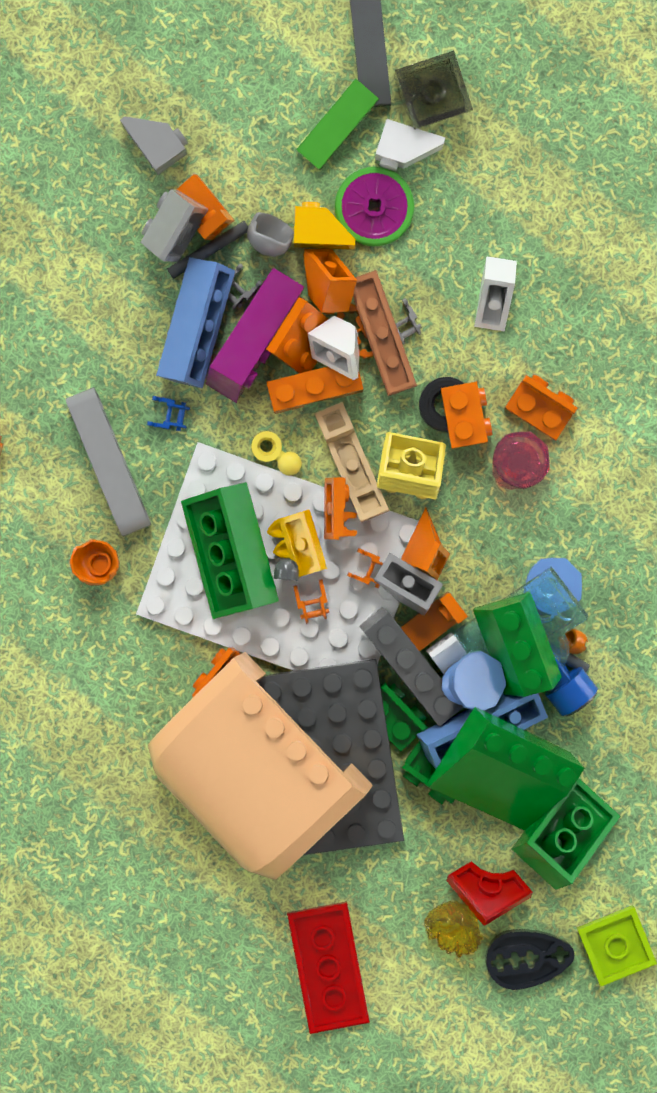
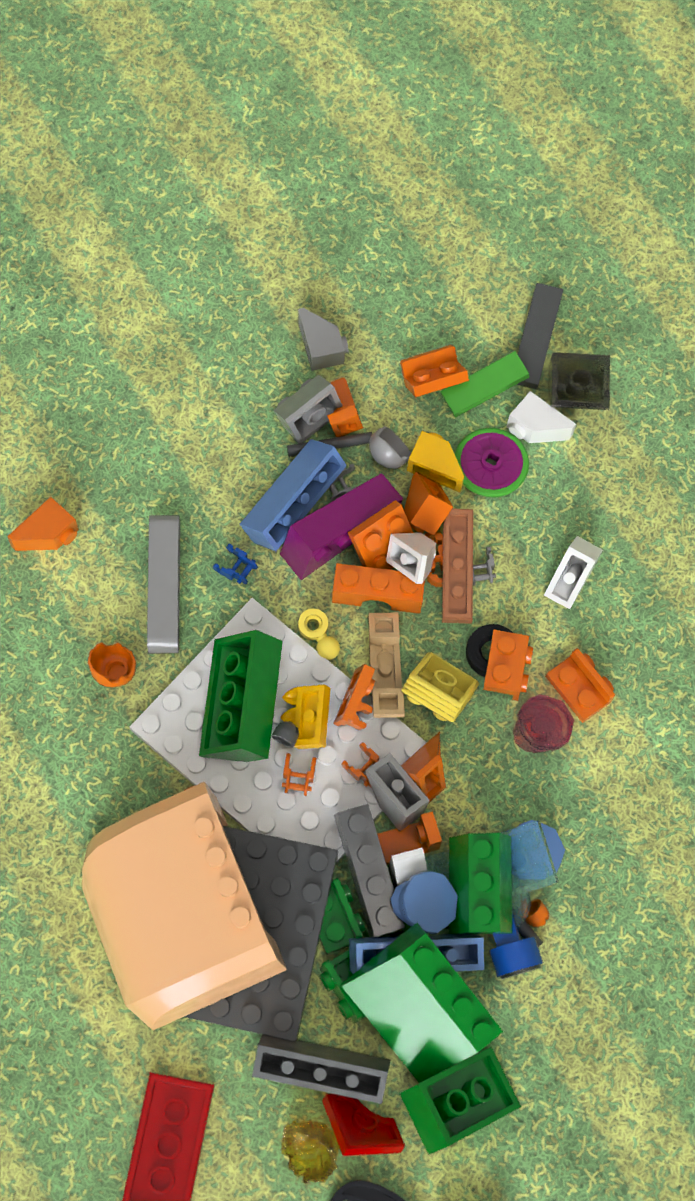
camera: 20 degrees right, 20 degrees down
(282, 132) = (433, 371): none -> orange bracket
(436, 855) = (321, 1068): none -> dark grey brick

